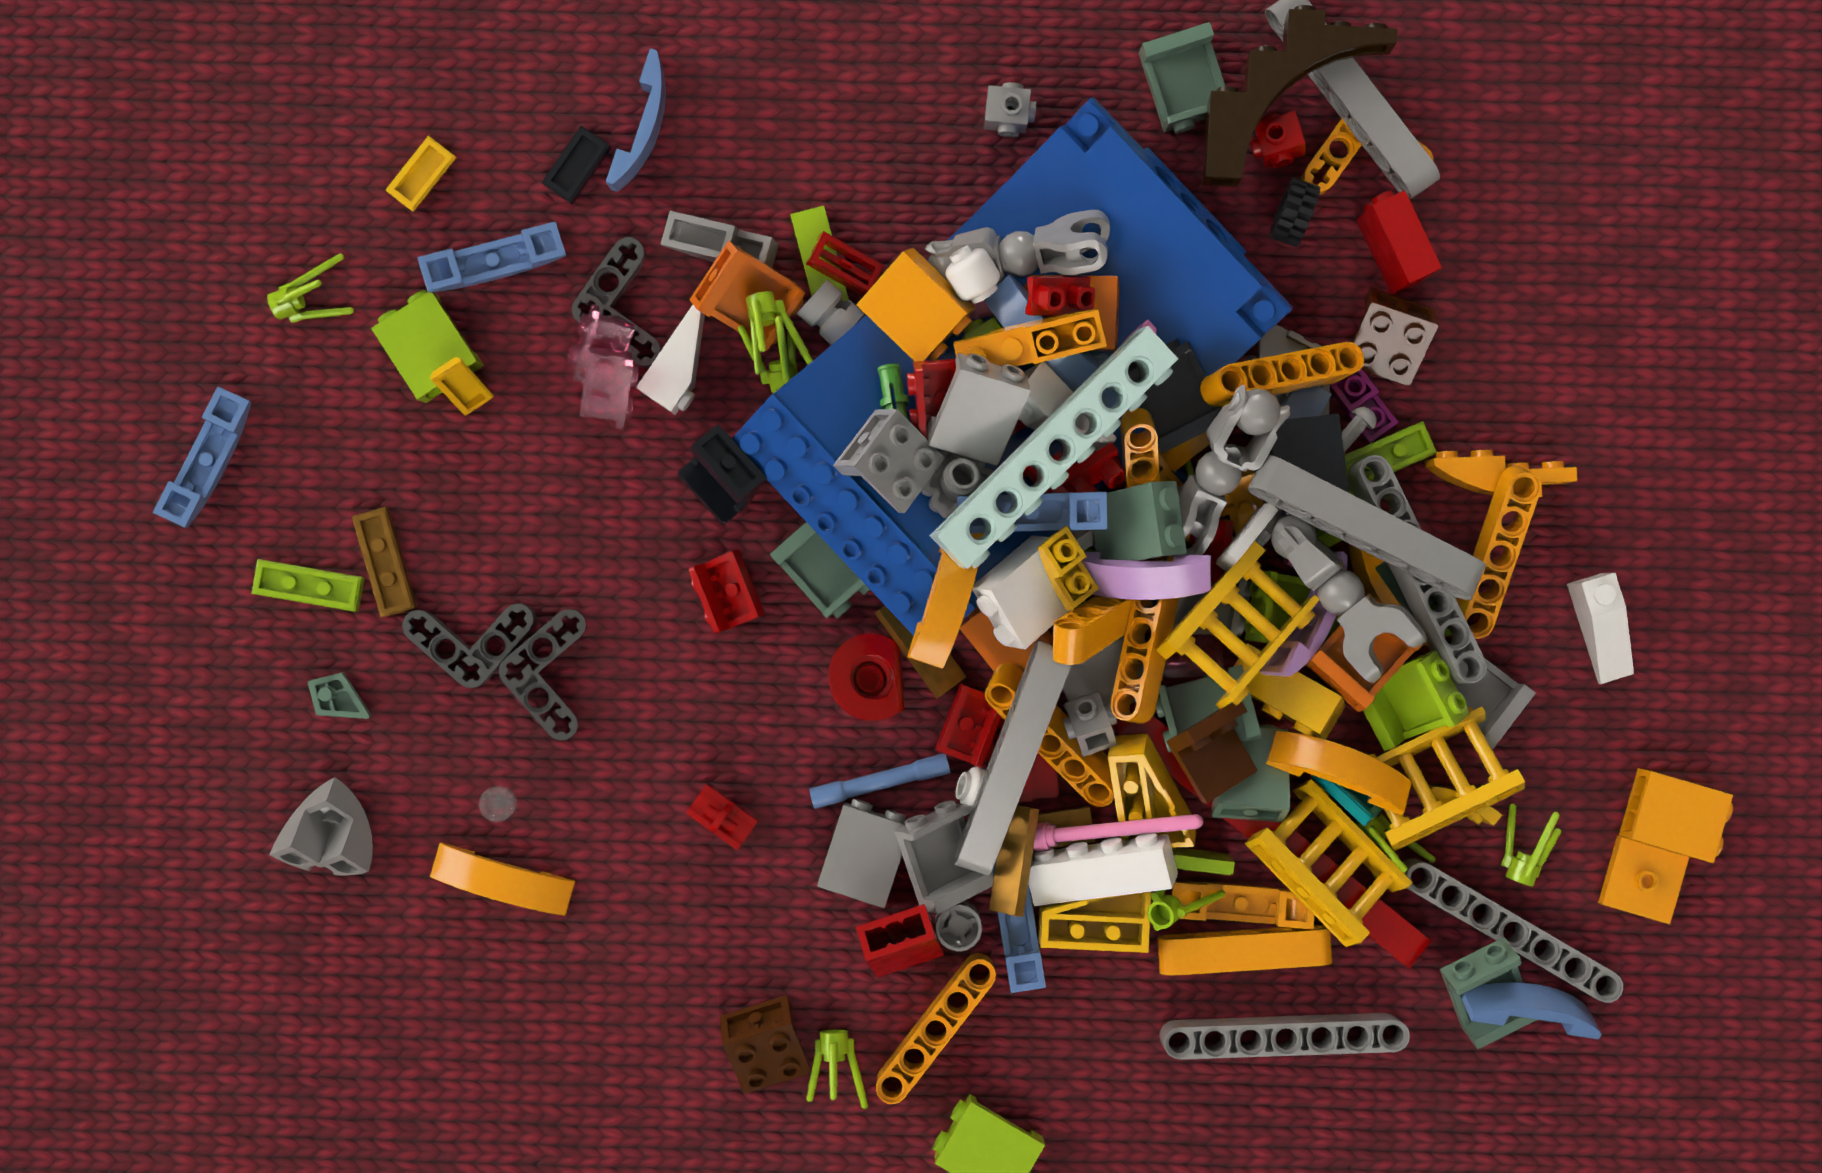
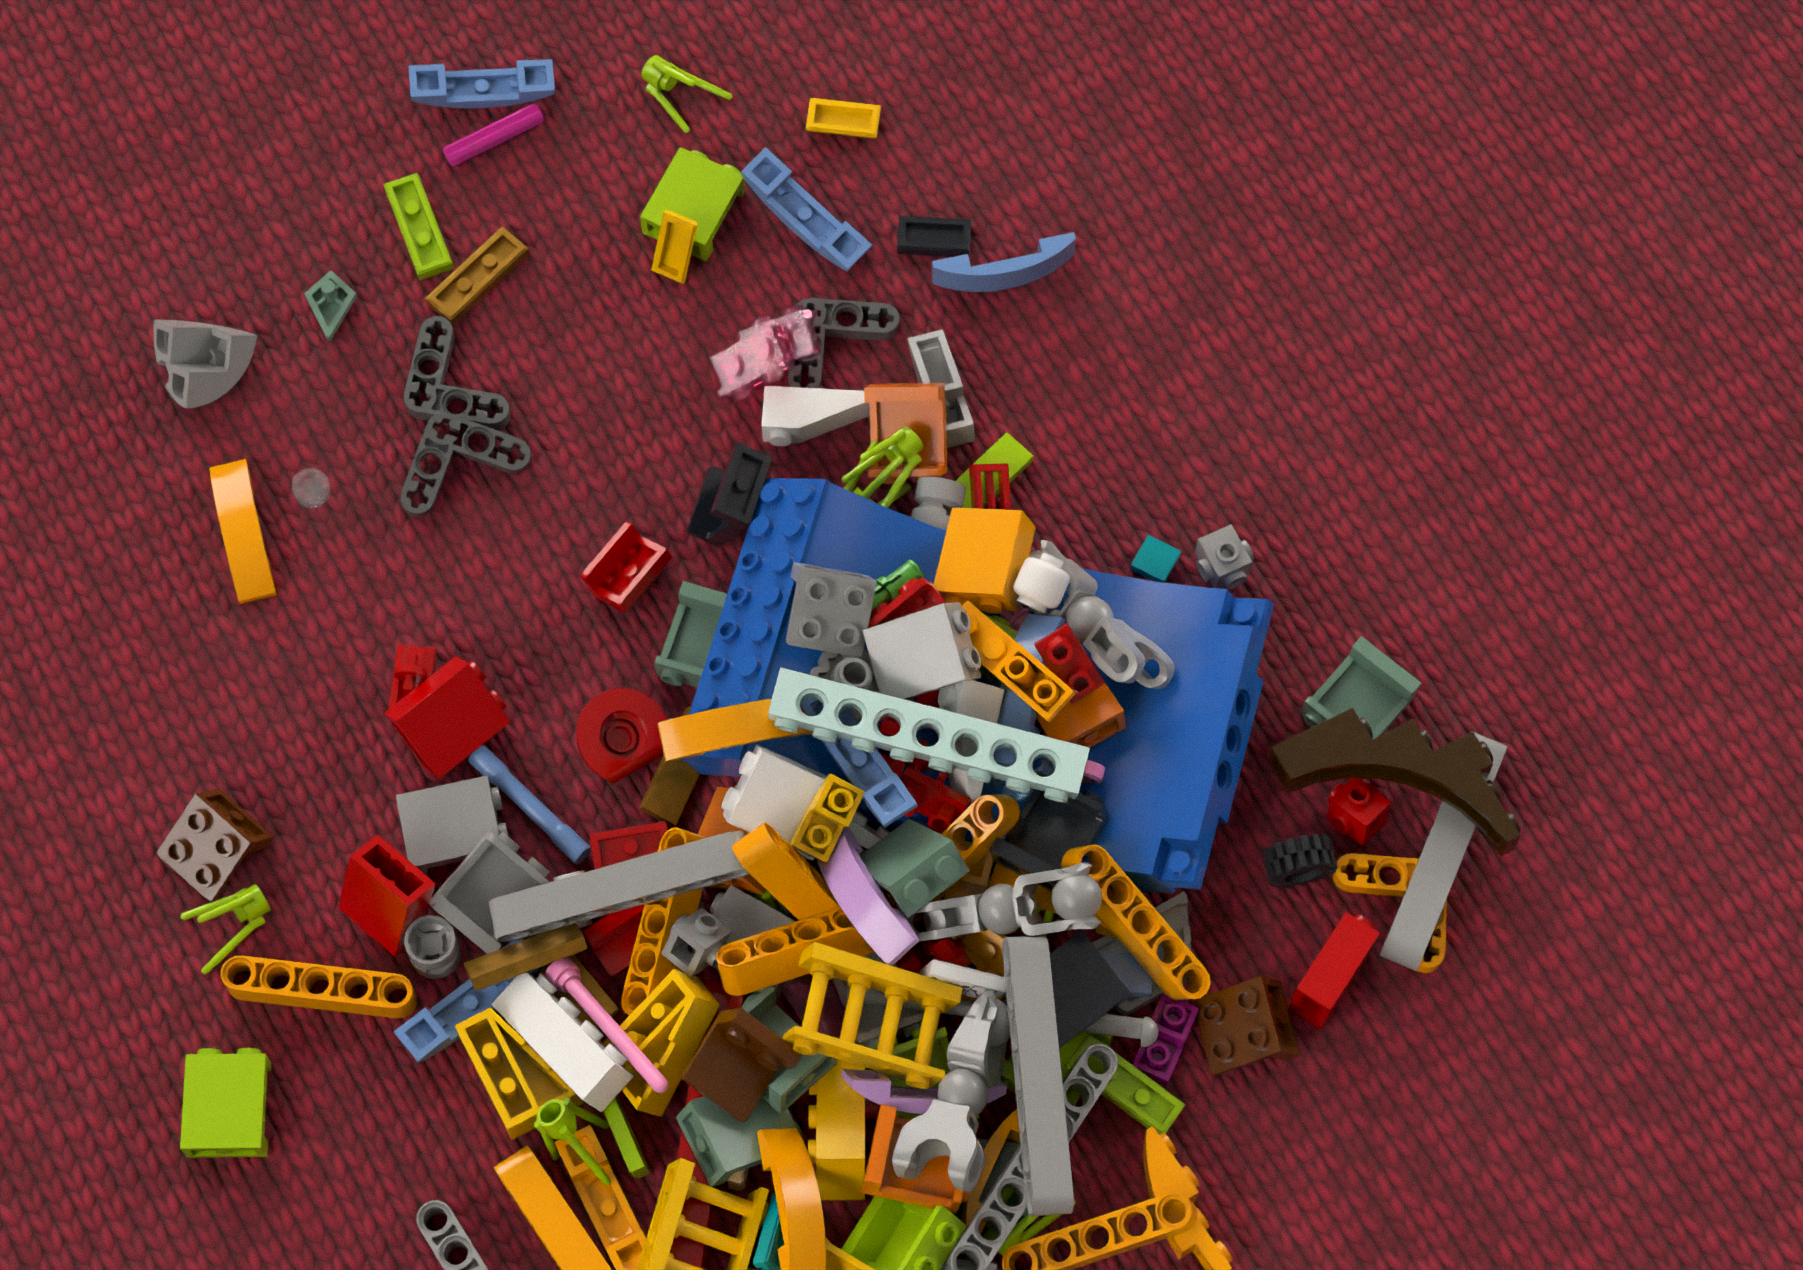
camera: 60 degrees right, 20 degrees down
(259, 475) = (493, 134): none -> dark pink axle
(774, 808) = (448, 716): none -> red brick
(971, 164) = (1155, 560): none -> teal tile

